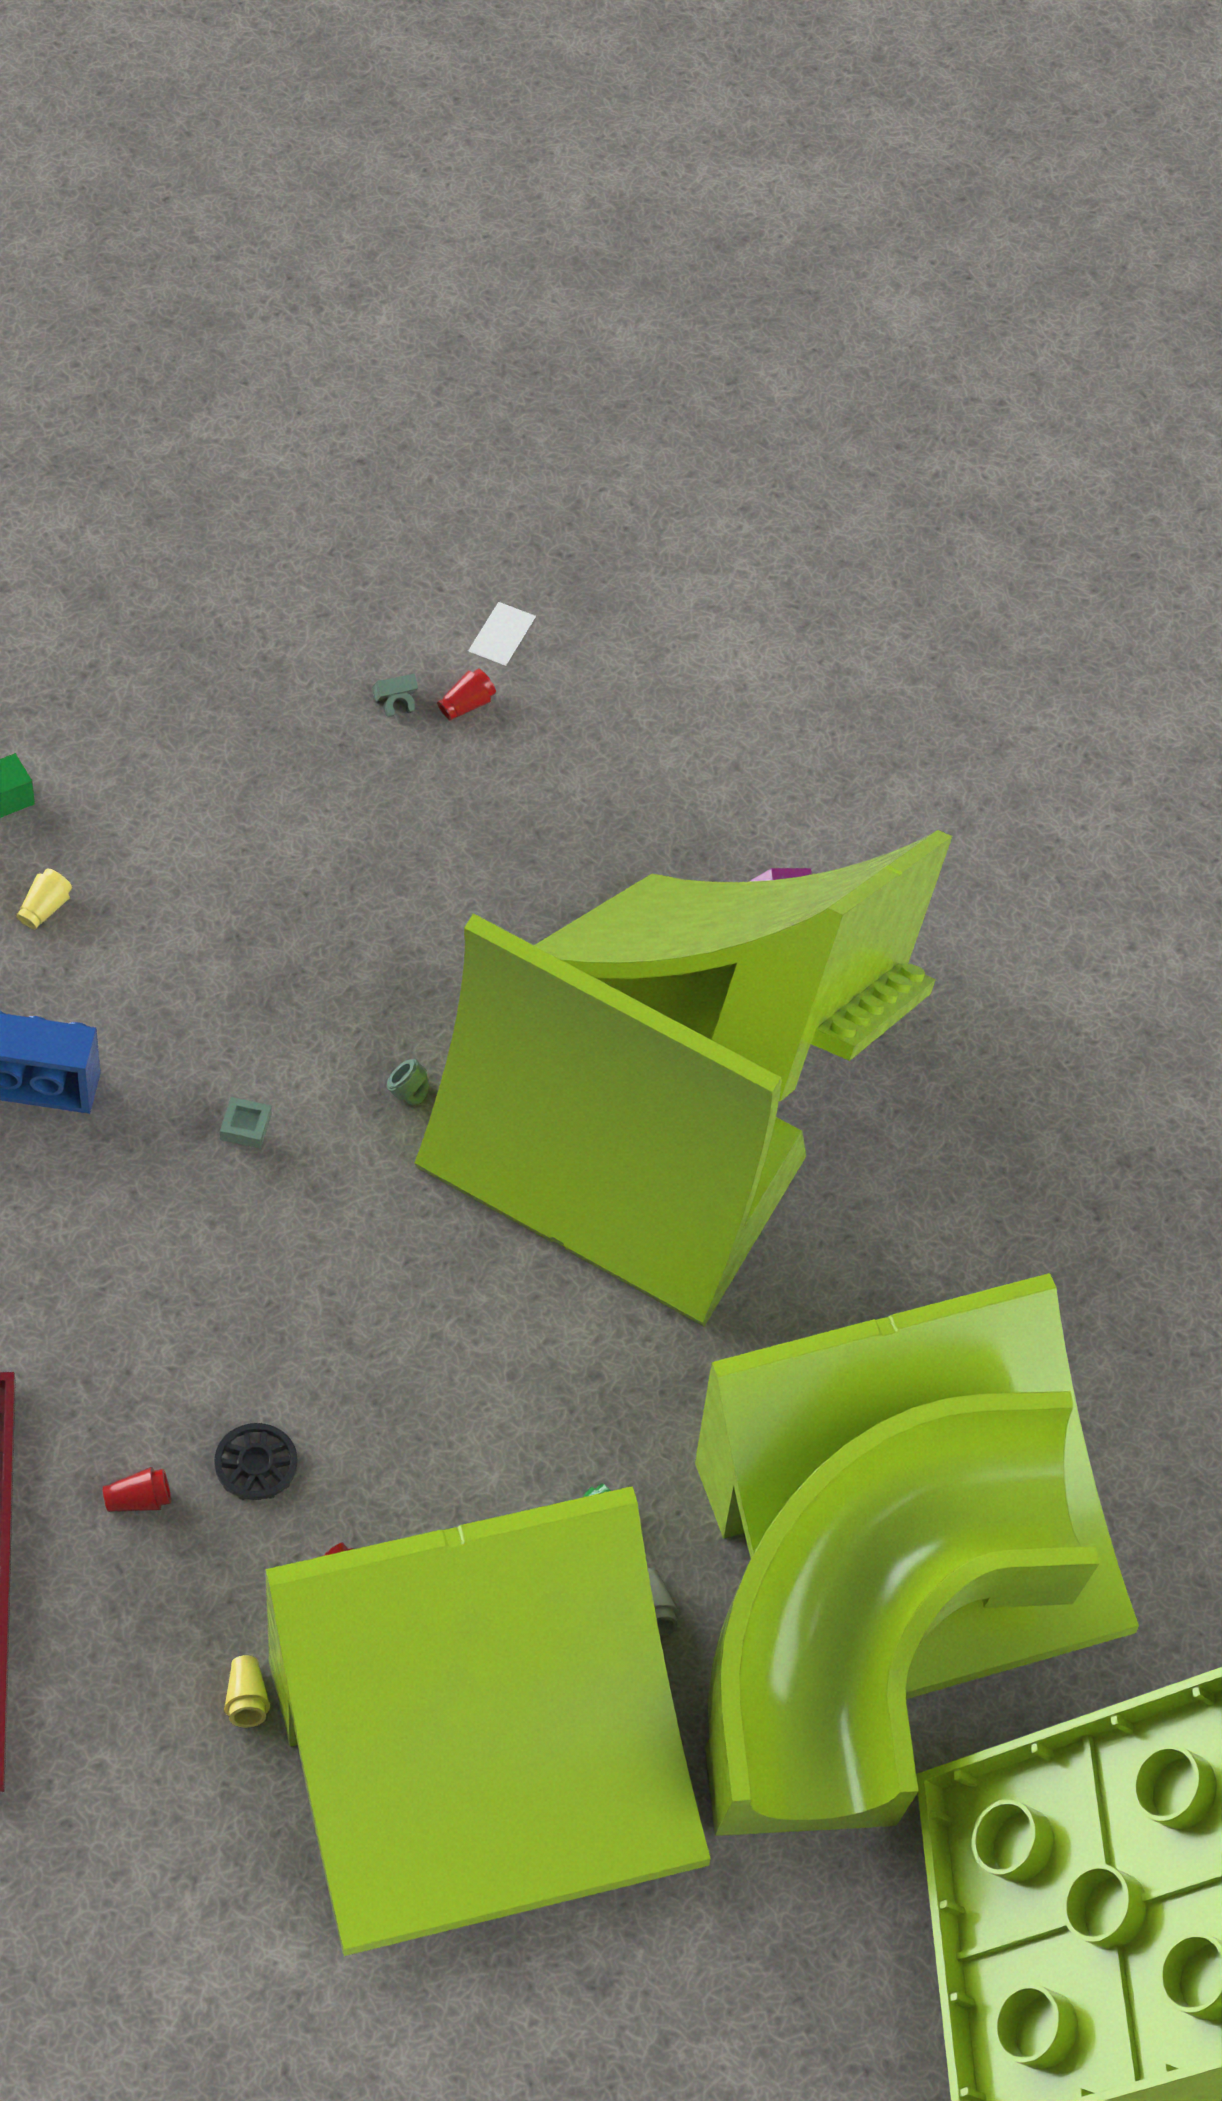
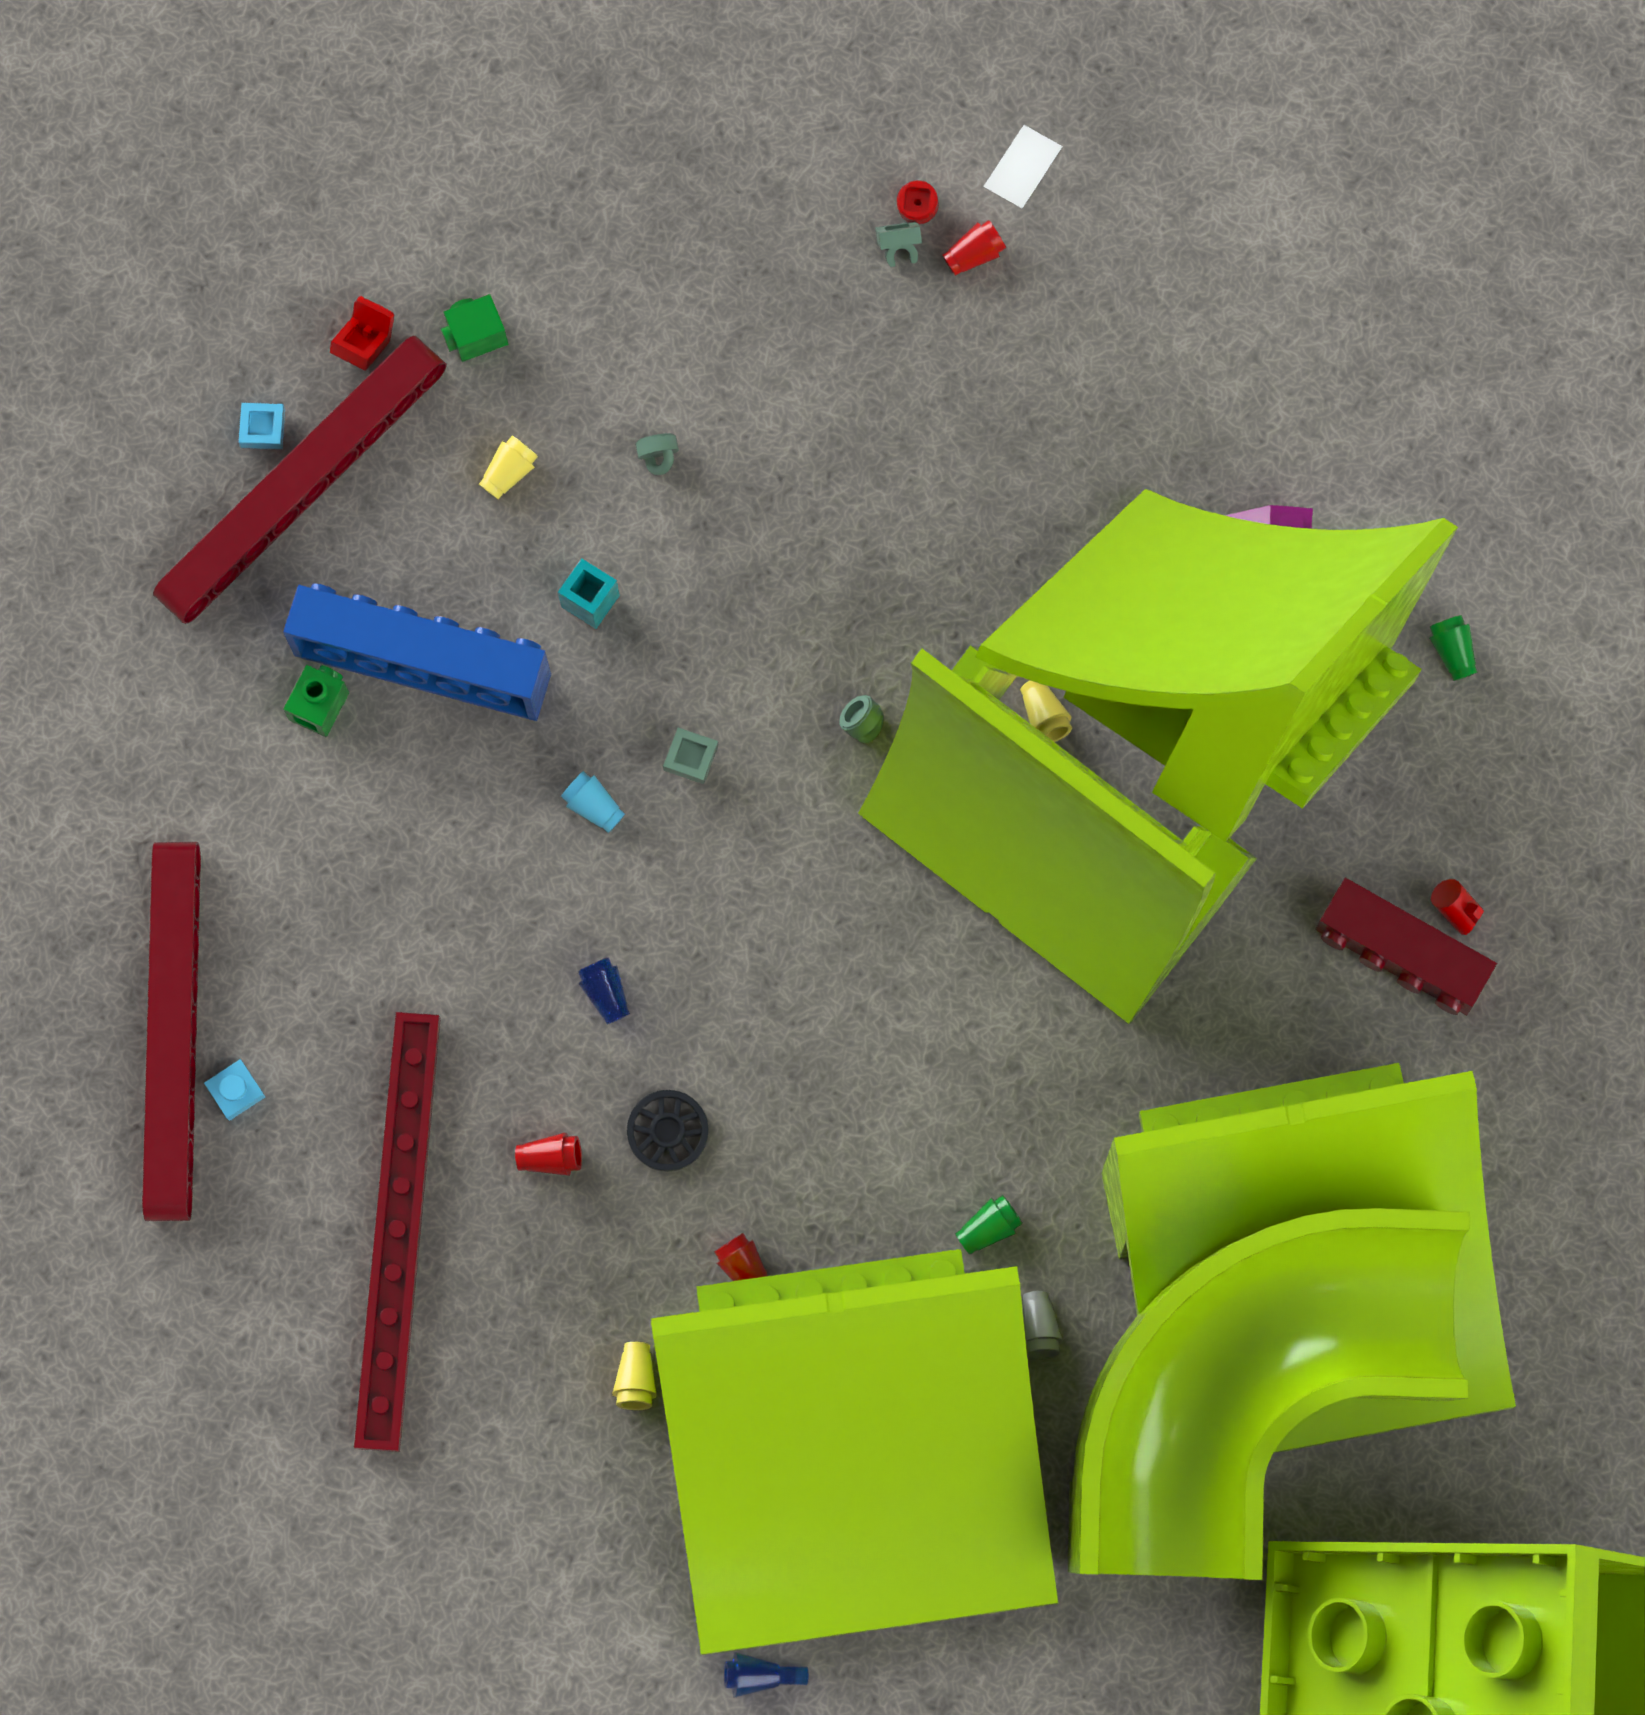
camera: 15 degrees right, 20 degrees up
(132, 992) = (588, 593): none -> teal brick
(152, 1173) = (593, 802): none -> medium azure cone
(179, 1335) = (604, 989): none -> clear blue cone
(186, 871) = (657, 446): none -> sand green tile
(398, 1970) = (753, 1675): none -> clear blue cone
(409, 660) = (917, 202): none -> red tile
(957, 1230) = (1405, 947): none -> dark red brick
(959, 978) = (1455, 646): none -> green cone
(1001, 1192) = (1456, 905): none -> red piece

